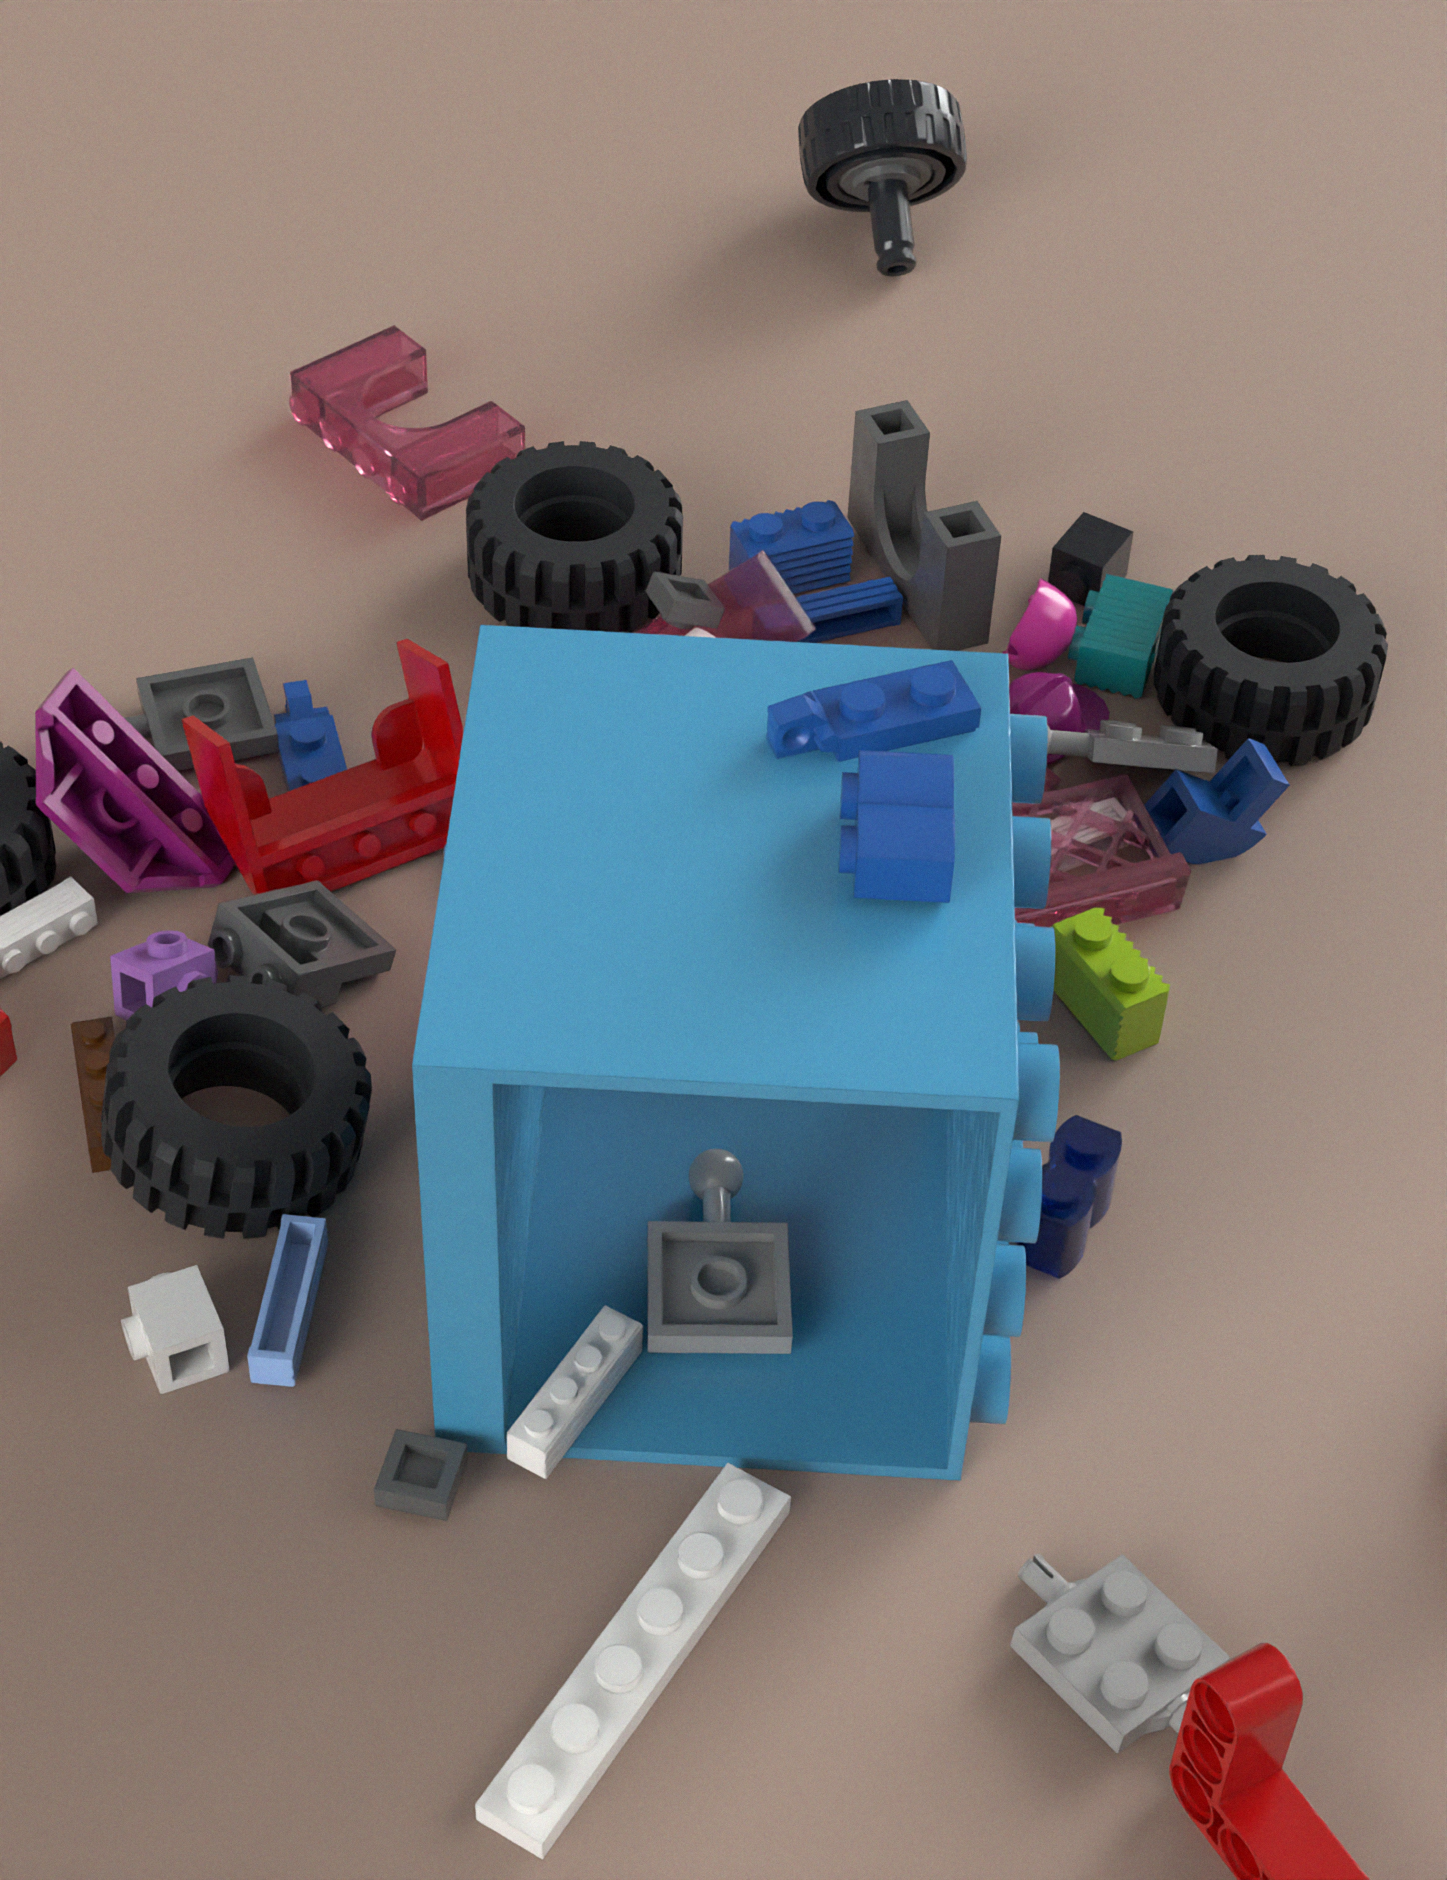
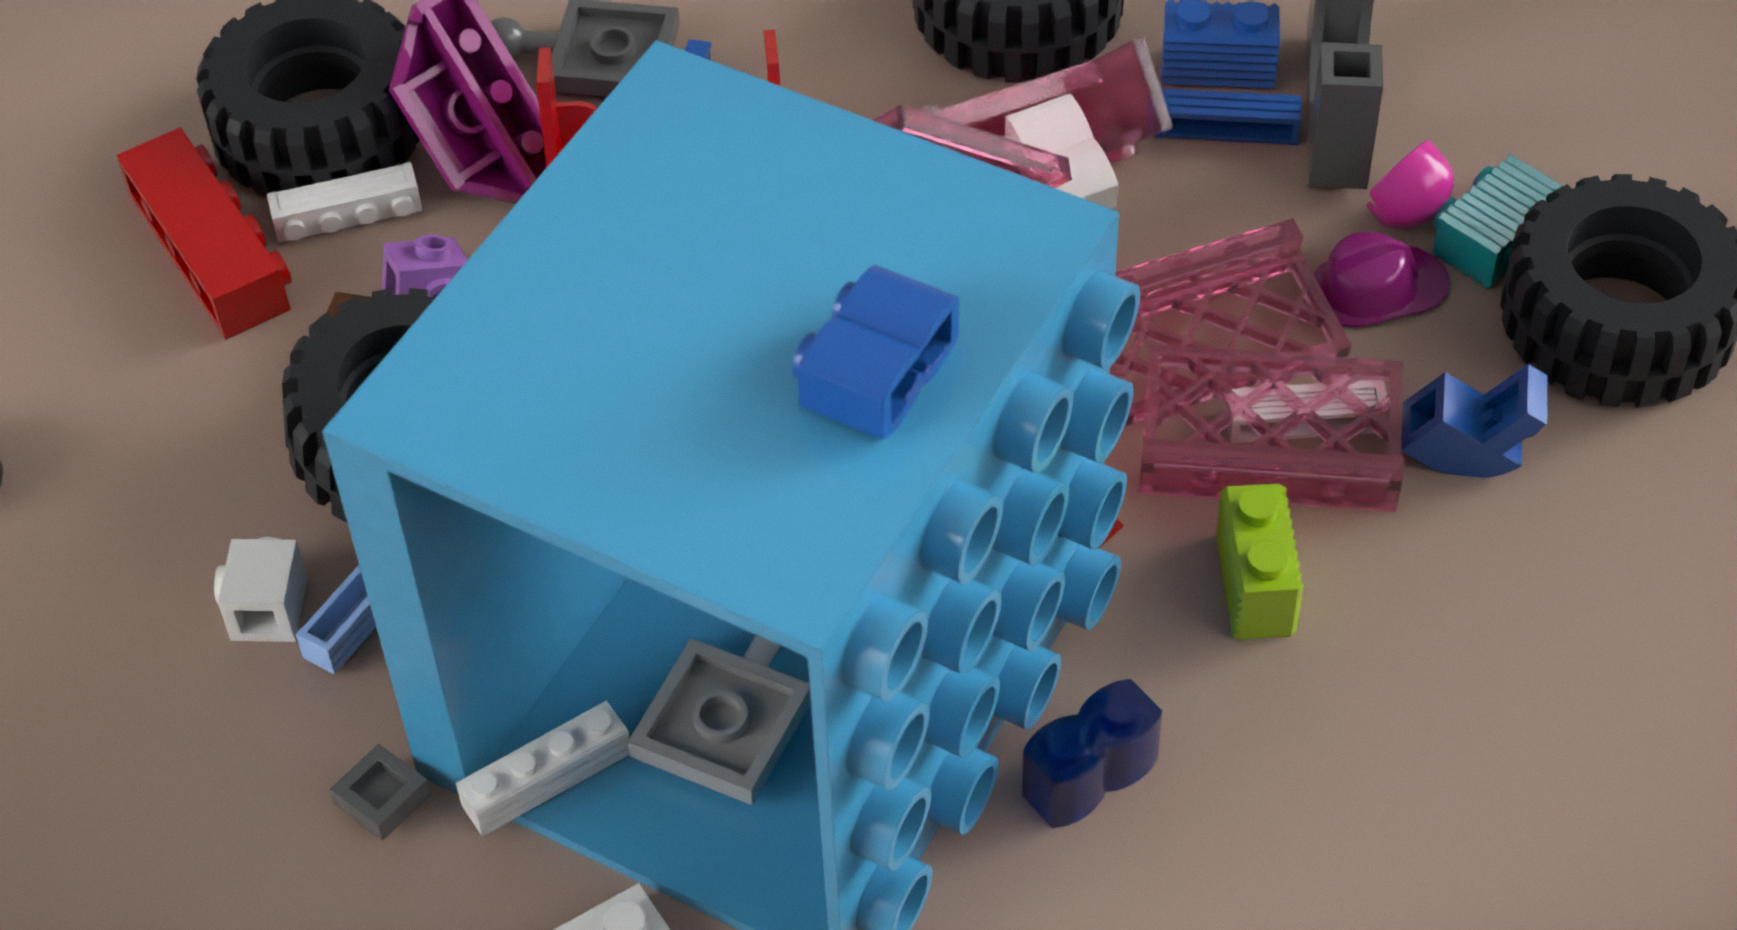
camera: 30 degrees right, 5 degrees up
(685, 601) = (1071, 64): dark grey plate -> none
(875, 713) = (940, 233): blue hinge -> none
(1087, 554) = (1517, 126): black brick -> none
(1126, 745) = (1416, 331): light grey plate -> none

